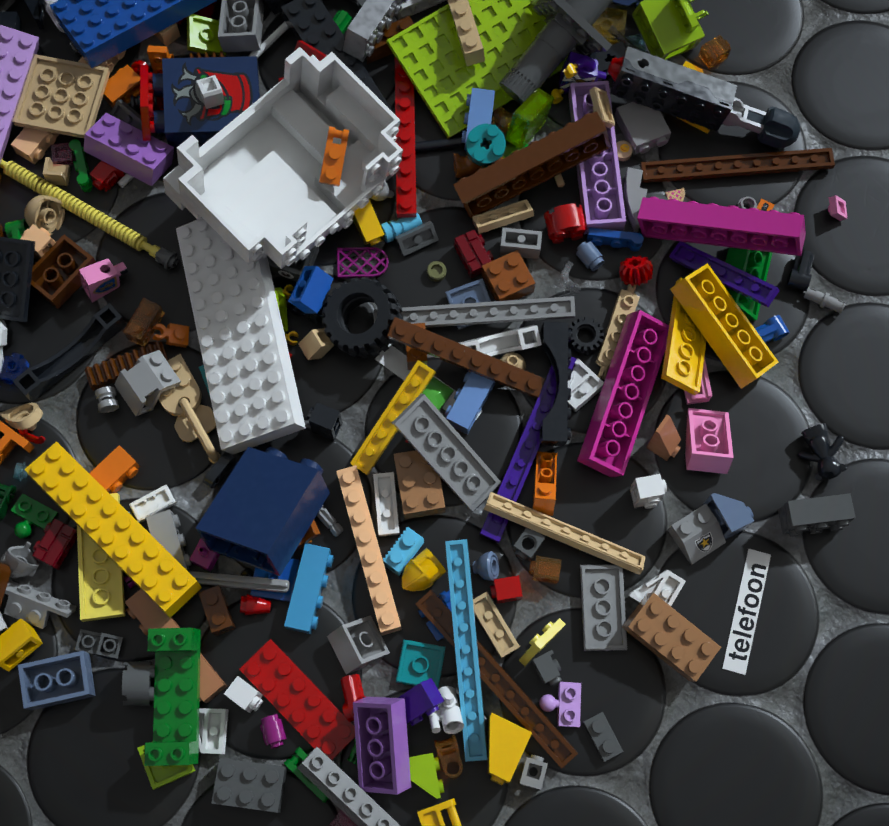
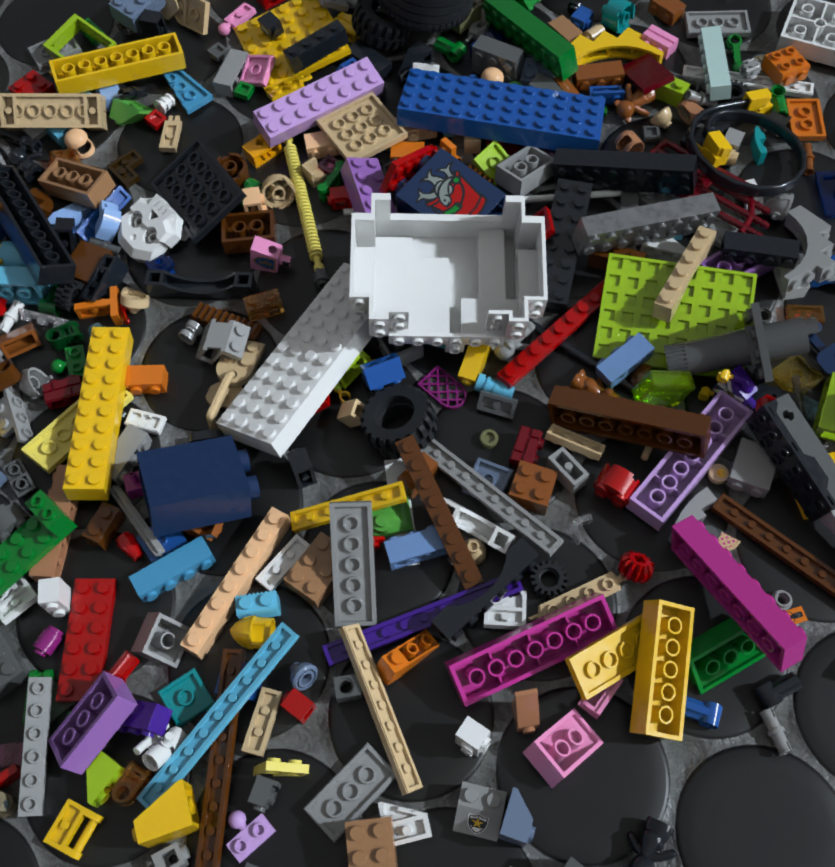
camera: 50 degrees right, 10 degrees down
(174, 334) = (274, 329): orange plate -> none
(211, 91) = (449, 191): white slope -> none
(329, 521) = (236, 536): light grey axle -> none
(334, 157) = (483, 293): orange plate -> none
(491, 135) = (601, 369): teal brick -> none
(545, 569) = (339, 719): clear orange brick -> none
(590, 255) = (612, 526): sand blue brick -> none
(602, 106) = (726, 424): tan plate -> none
(615, 238) = (644, 530): blue plate -> none
(729, 275) = (704, 633): dark purple plate -> none

